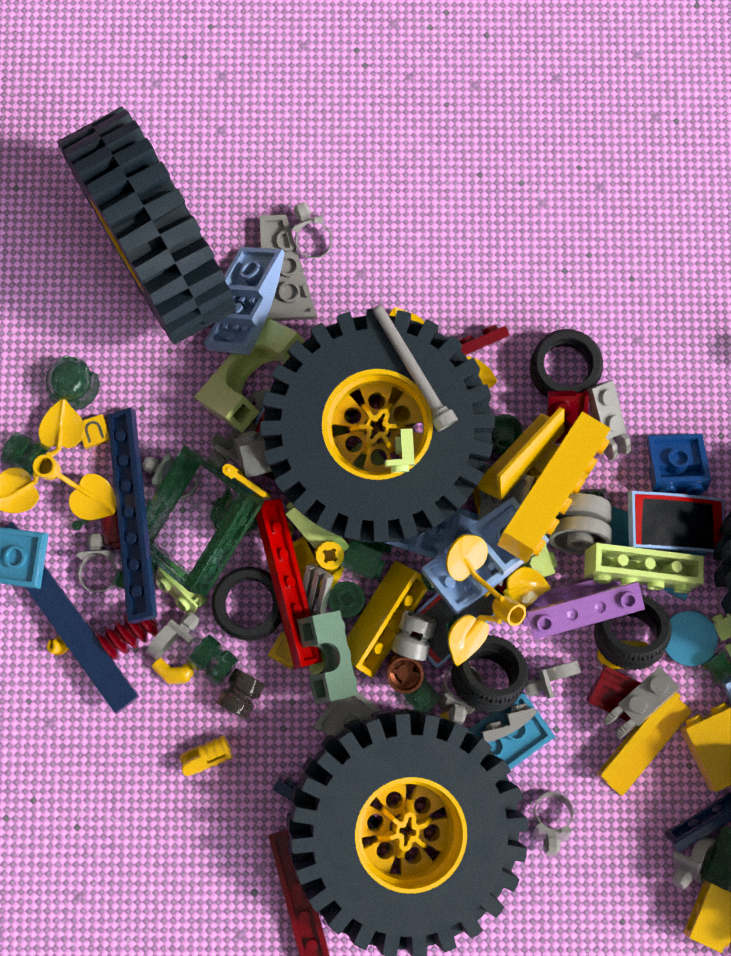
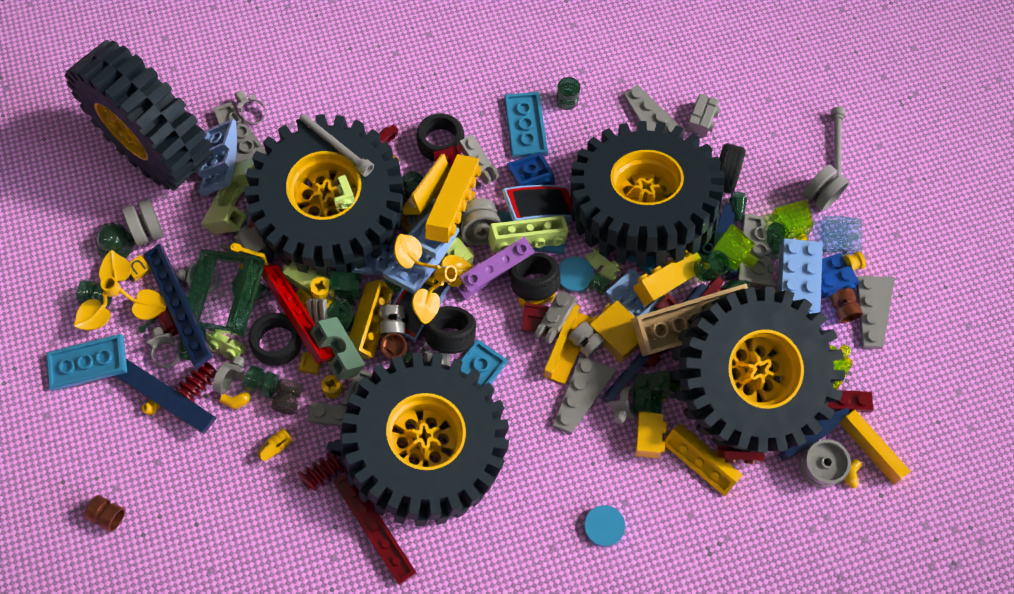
camera: 20 degrees left, 15 degrees down
(116, 372) = (143, 222): none -> light grey wheel
(256, 817) = (321, 471): none -> dark red piece
(291, 734) = (326, 414): none -> light grey hinge
(305, 697) = (334, 390): none -> yellow wheel
(519, 715) = (477, 353): light grey slope -> none
(550, 674) = (493, 320): light grey piece -> none
(552, 837) = (524, 421): light grey piece -> none
(643, 815) = (584, 388): none -> light grey wing
(674, 750) = (581, 334): none -> light grey wheel
(694, 380) = (525, 124): none -> dark azure tile

